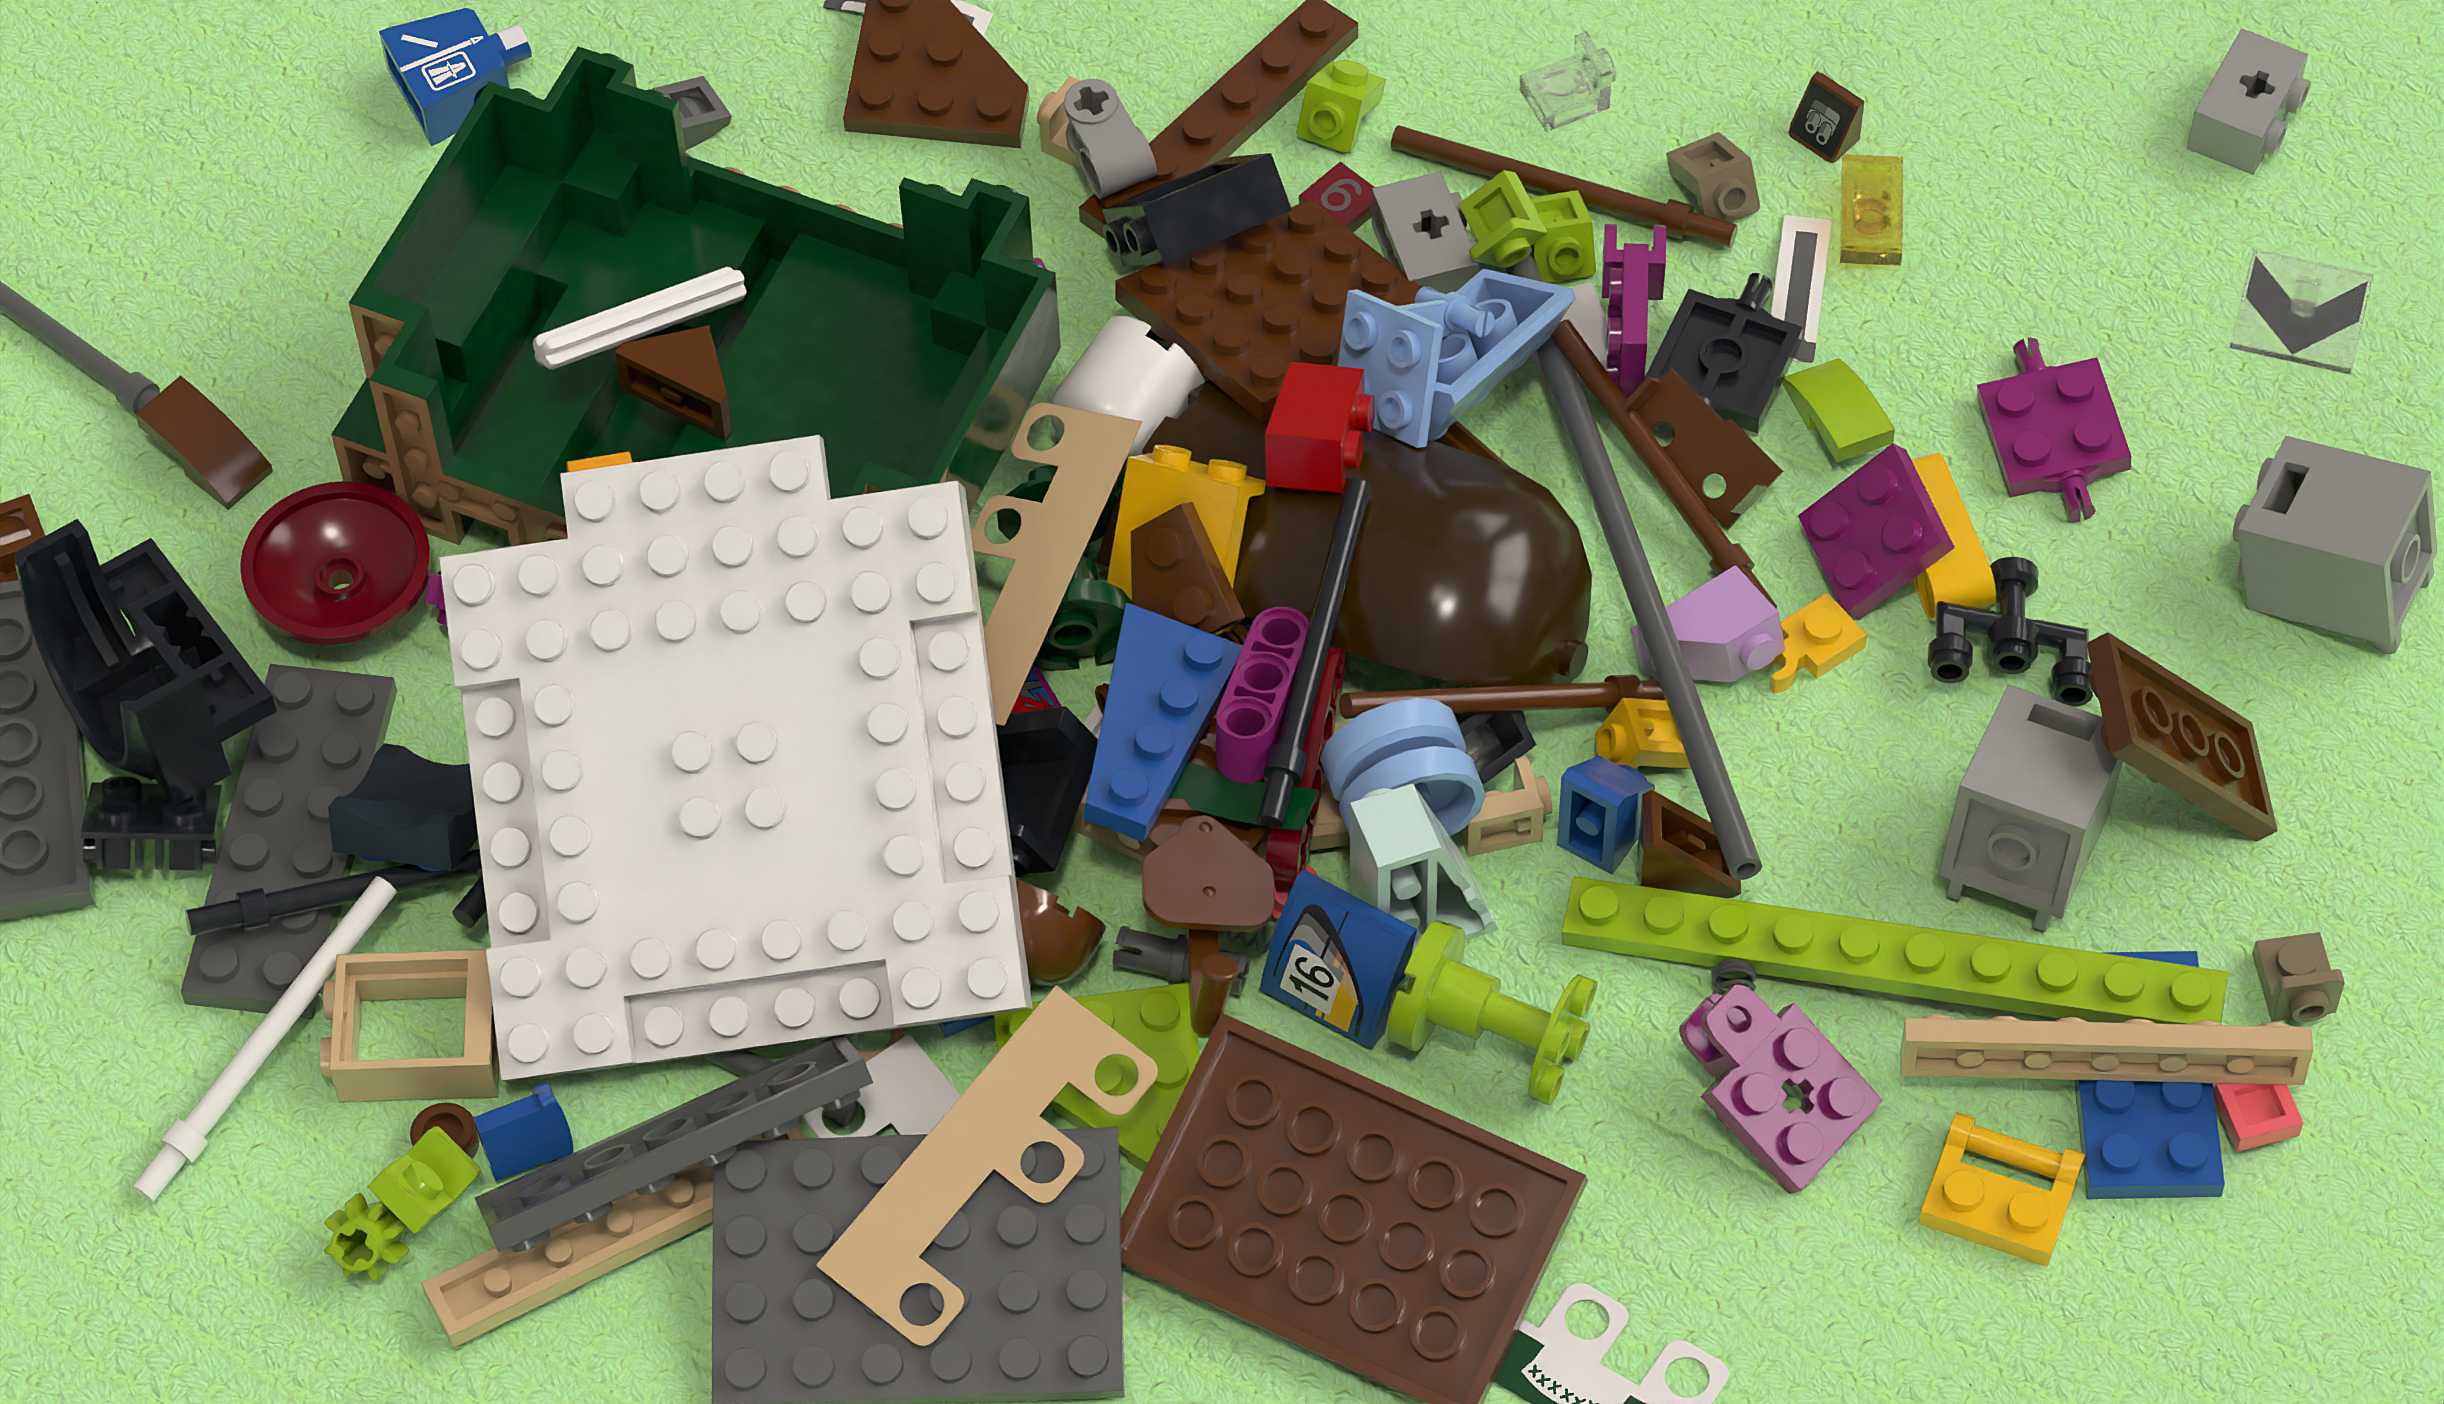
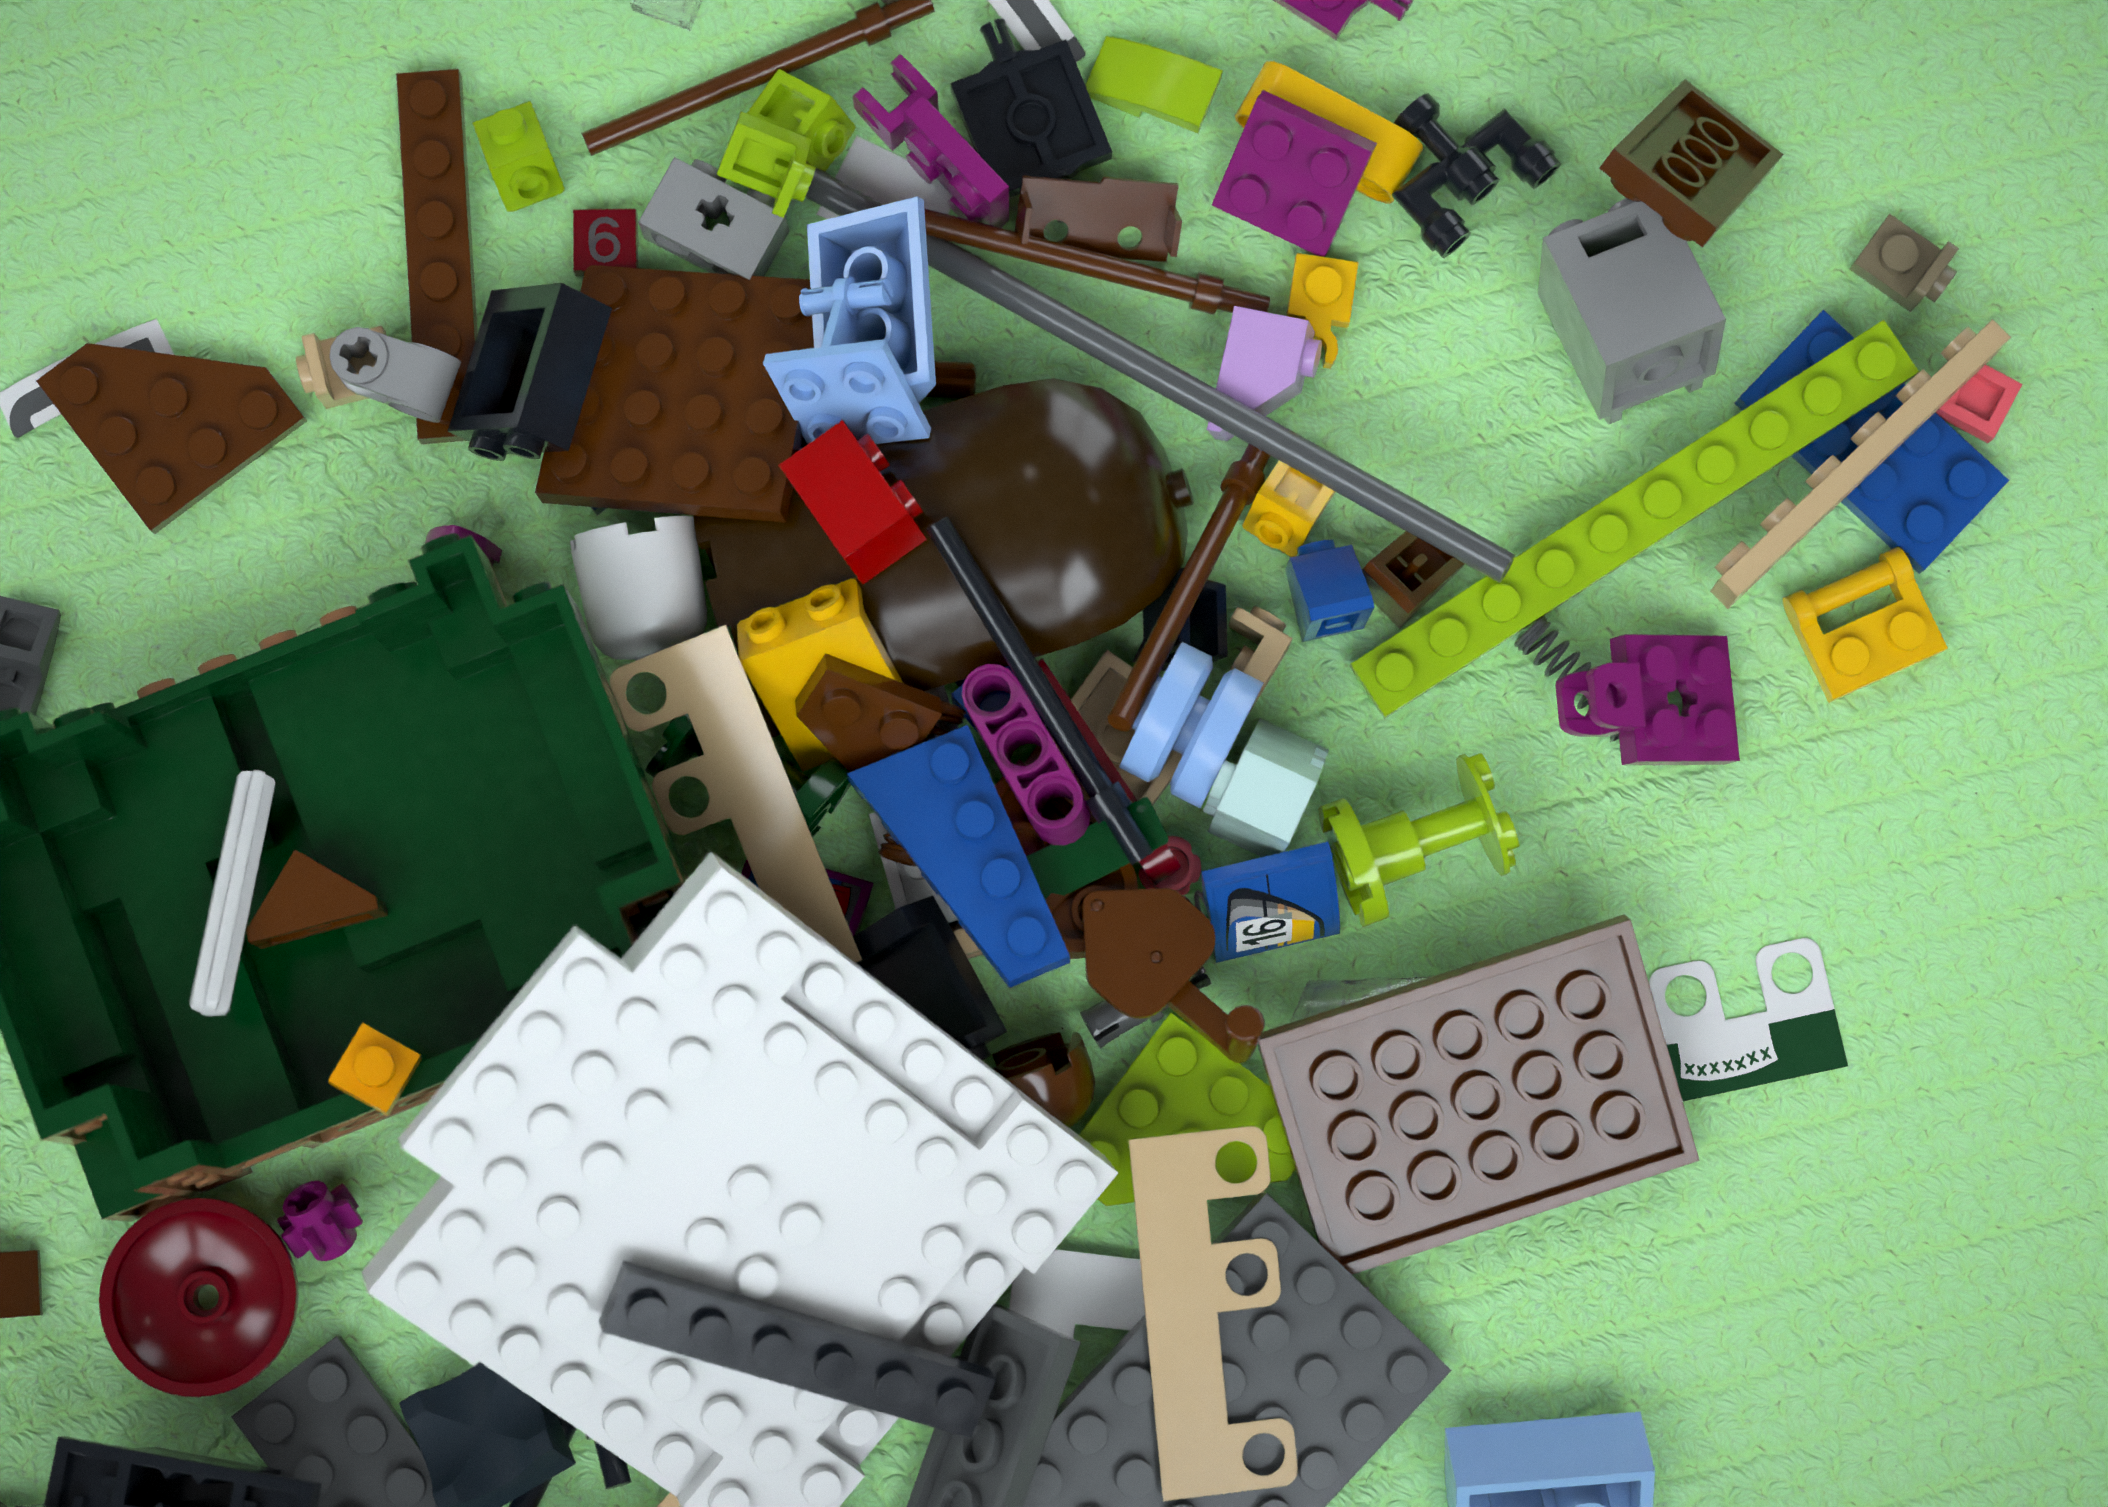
camera: 50 degrees left, 25 degrees up
(676, 896) = (796, 1349): none -> black plate

